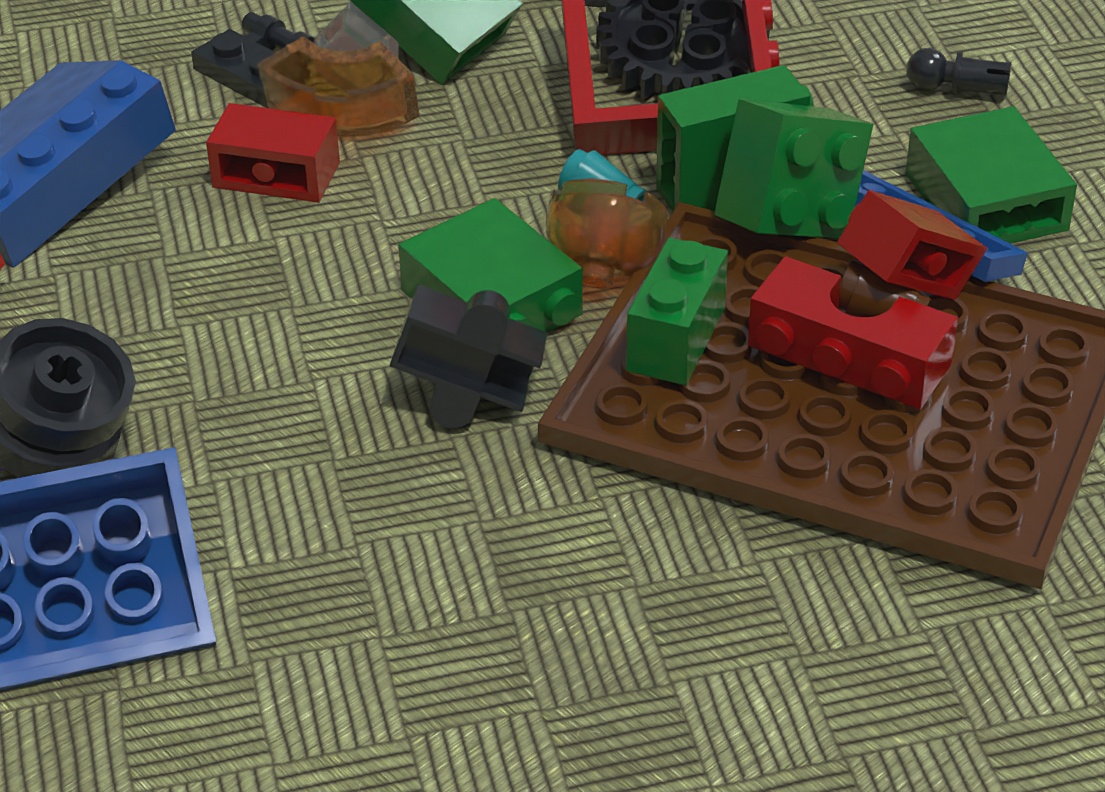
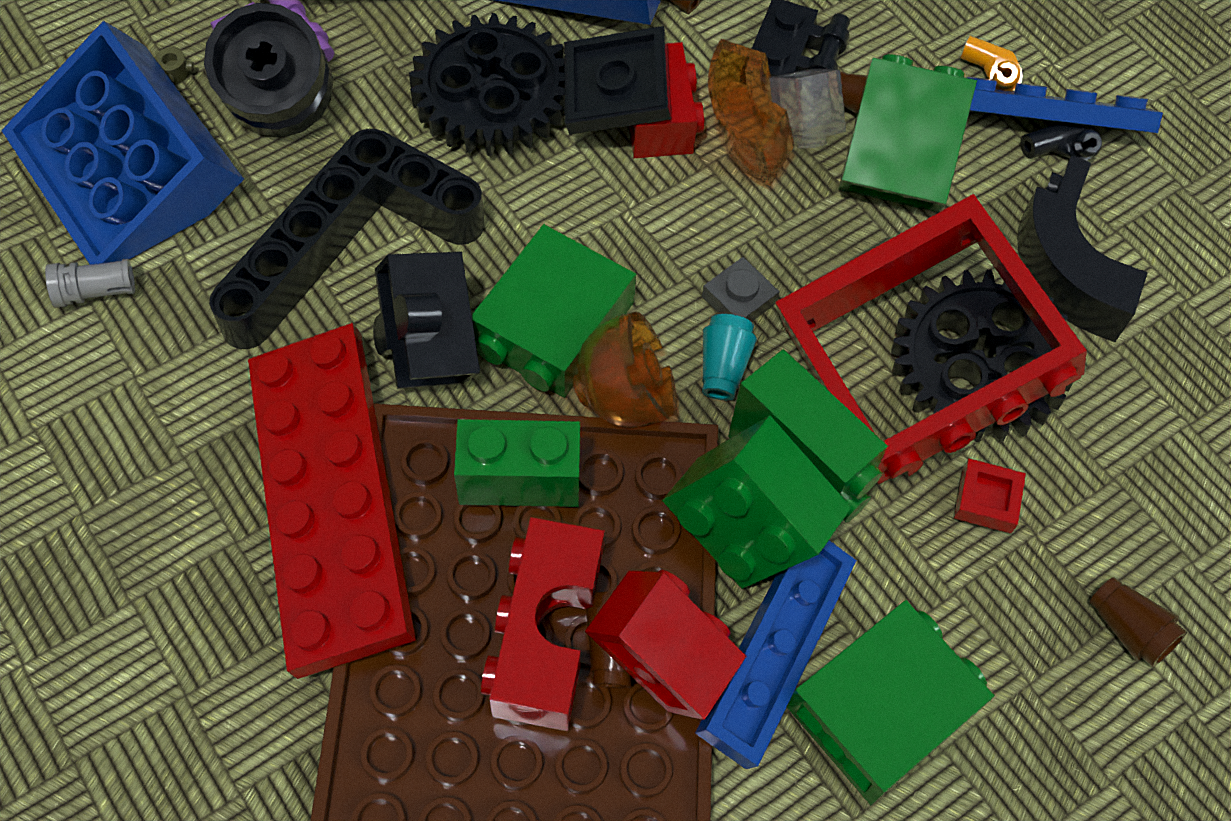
camera: 65 degrees right, 20 degrees up
(169, 262) = (489, 84): none -> black gear
(232, 649) = (78, 282): none -> light grey pin
(246, 385) = (332, 209): none -> black beam
(252, 151) = (616, 80): none -> black tile
(529, 166) = (740, 291): none -> dark grey plate
(630, 474) = (328, 504): none -> red plate
(824, 75) = (990, 496): none -> red plate
(930, 69) = (1060, 598): black pin -> none
(974, 32) = (1138, 622): none -> reddish brown cone

